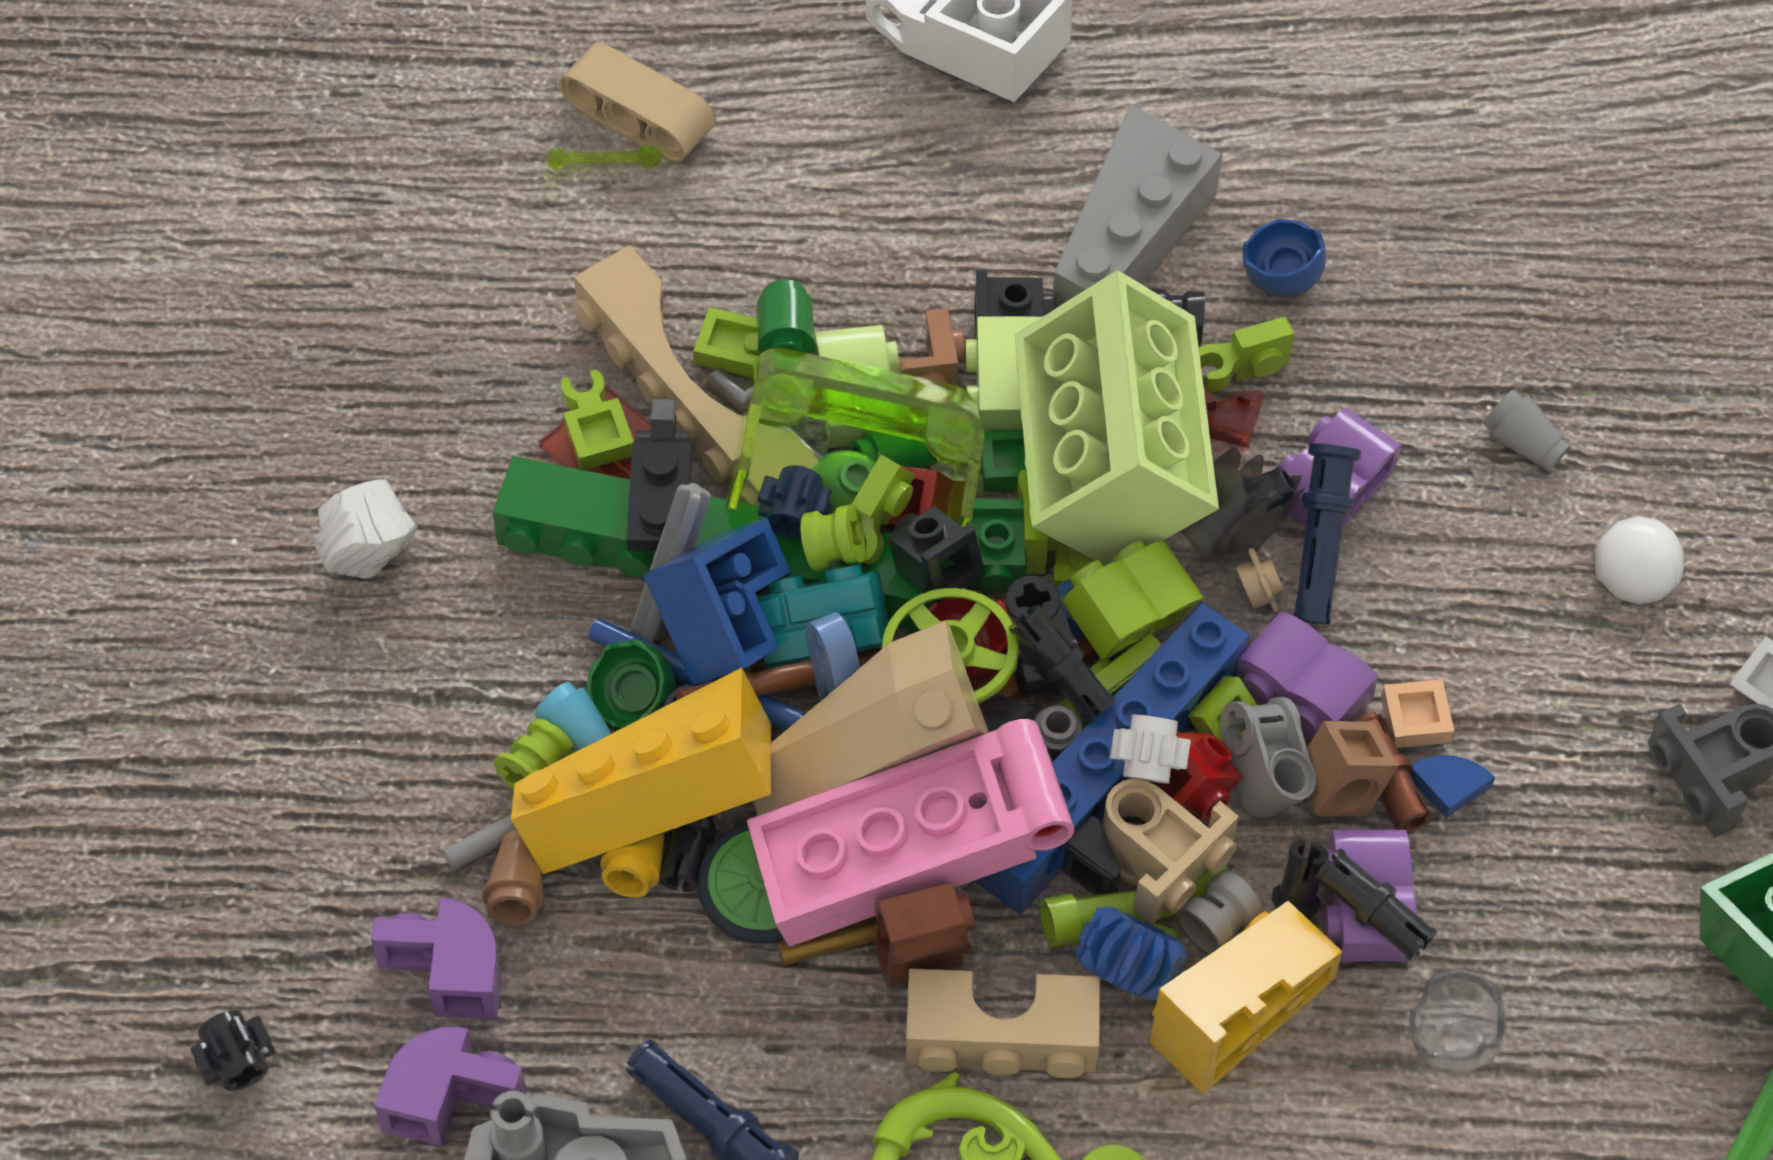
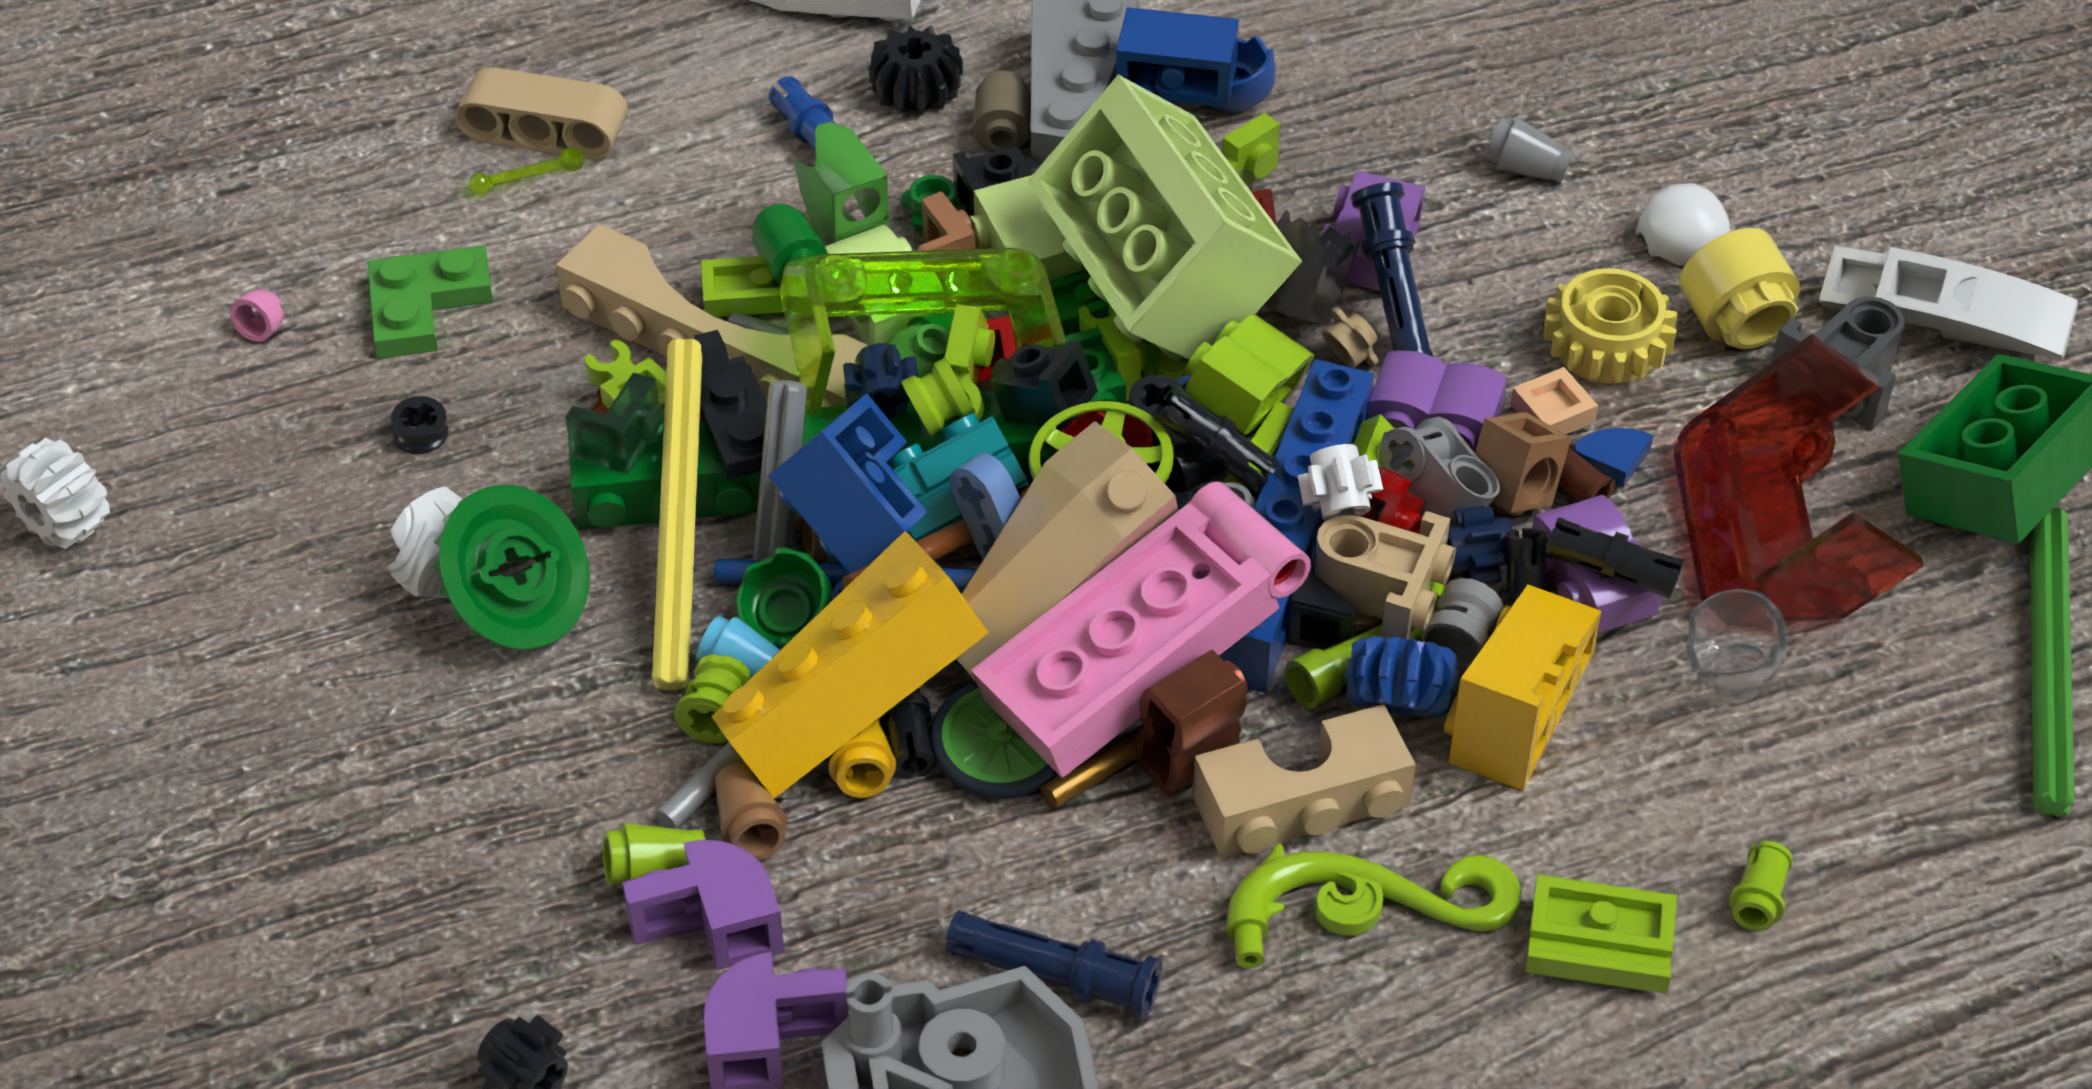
camera: 20 degrees left, 10 degrees down
(68, 371) = (55, 493): none -> white gear
(310, 237) = (261, 323): none -> bright pink hinge
(406, 380) = (416, 412): none -> black bush
(416, 888) = (643, 849): none -> lime cone
(439, 603) = (519, 527): none -> green gear
(455, 248) = (413, 286): none -> bright green plate
(555, 475) = (624, 430): none -> clear green bracket
(570, 570) = (677, 516): none -> light yellow axle
(855, 268) = (842, 169): none -> bright green piece
(874, 185) = (800, 109): none -> blue pin
(951, 296) = (923, 188): none -> green plate
(991, 160) = (915, 69): none -> black gear
(1047, 230) = (1002, 111): none -> dark tan brick
(1216, 238) = (1179, 55): none -> blue brick
(1267, 838) = (1479, 544): none -> dark blue gear
(1504, 675) = (1610, 326): none -> light yellow gear
(1552, 879) = (1745, 497): none -> clear red windscreen
(1650, 654) = (1741, 288): none -> light yellow piece

